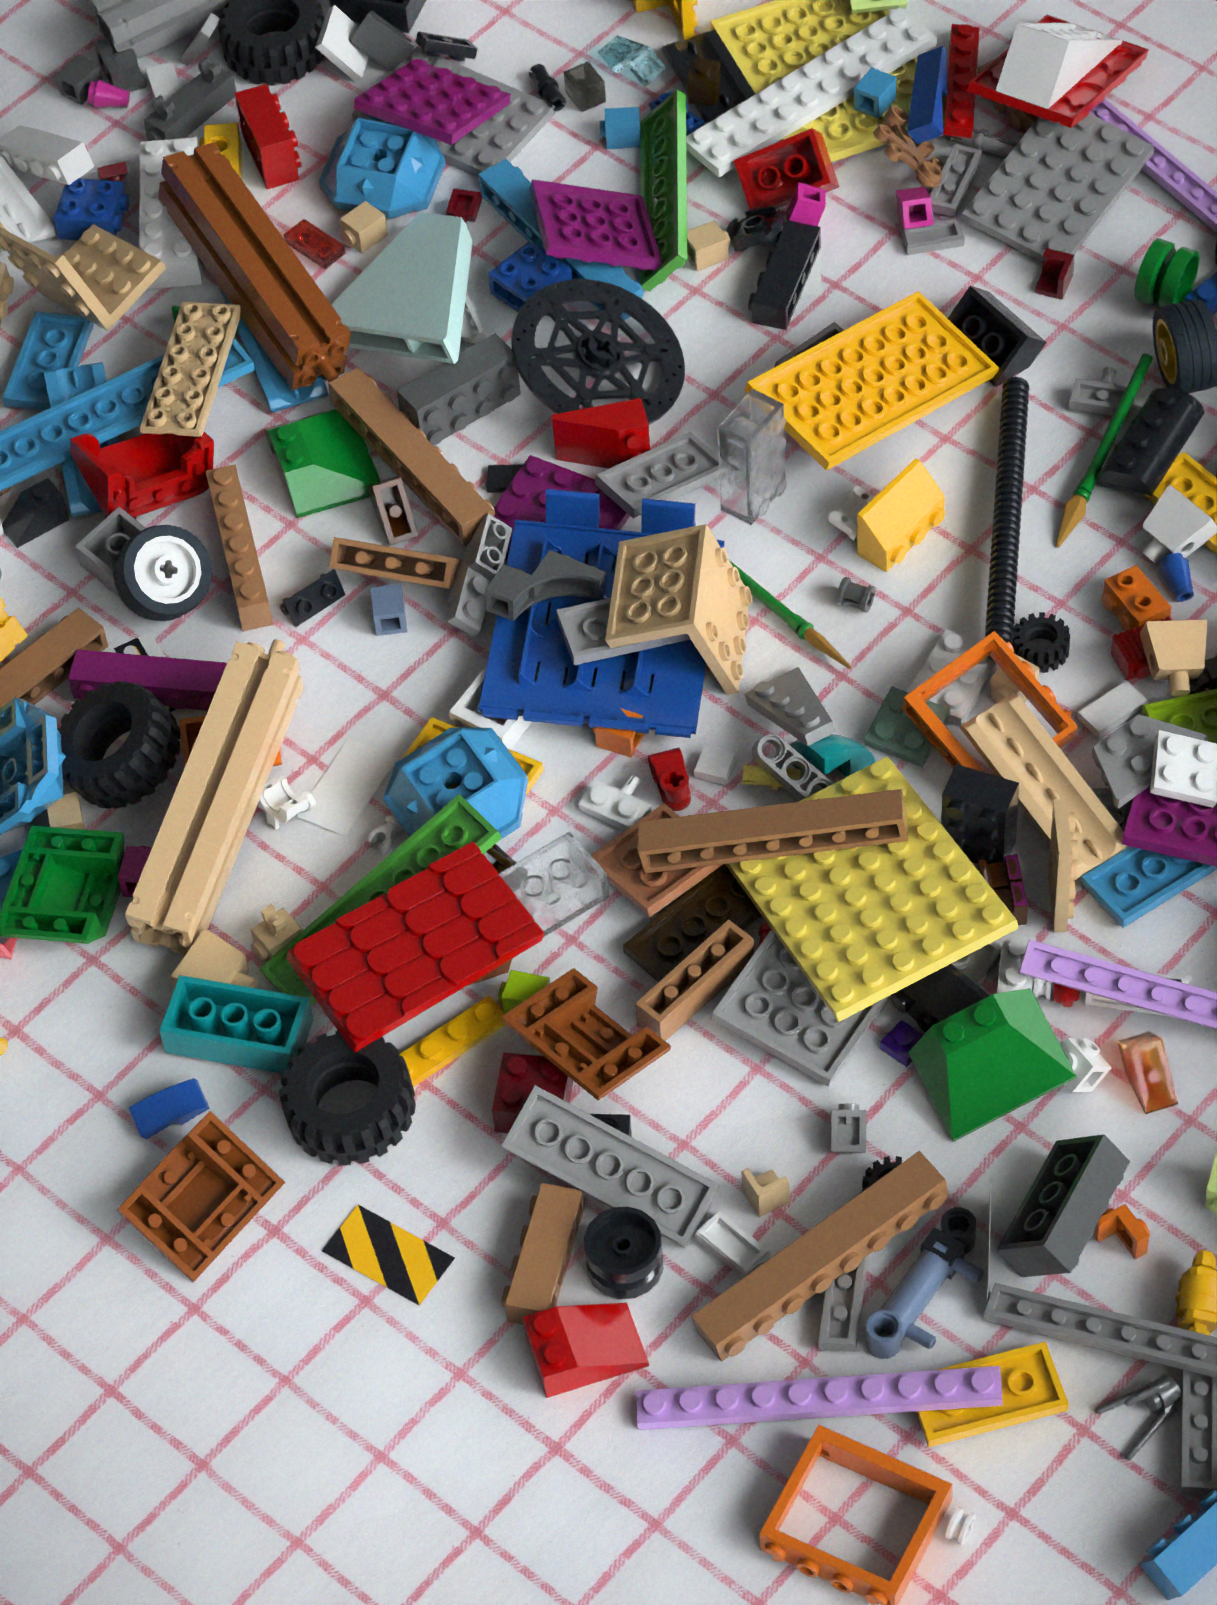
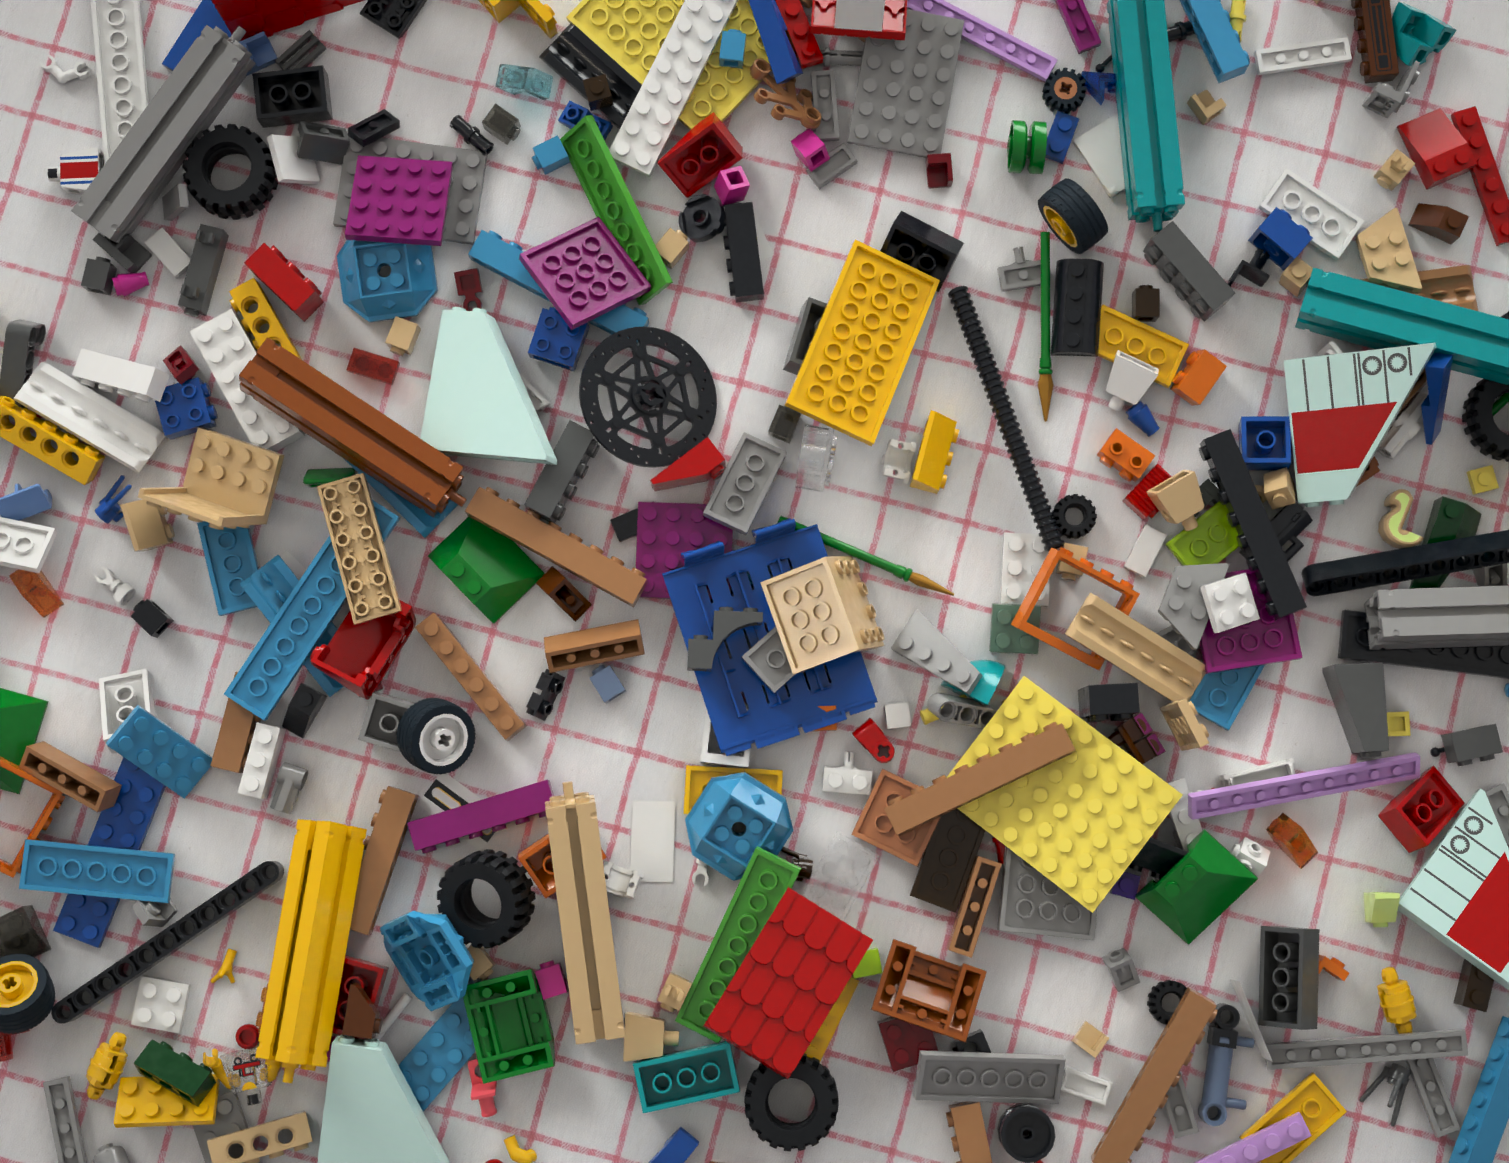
camera: 30 degrees left, 30 degrees up
(476, 570) = (656, 634): light grey slope -> none
(855, 594) = (929, 529): dark grey bush -> none

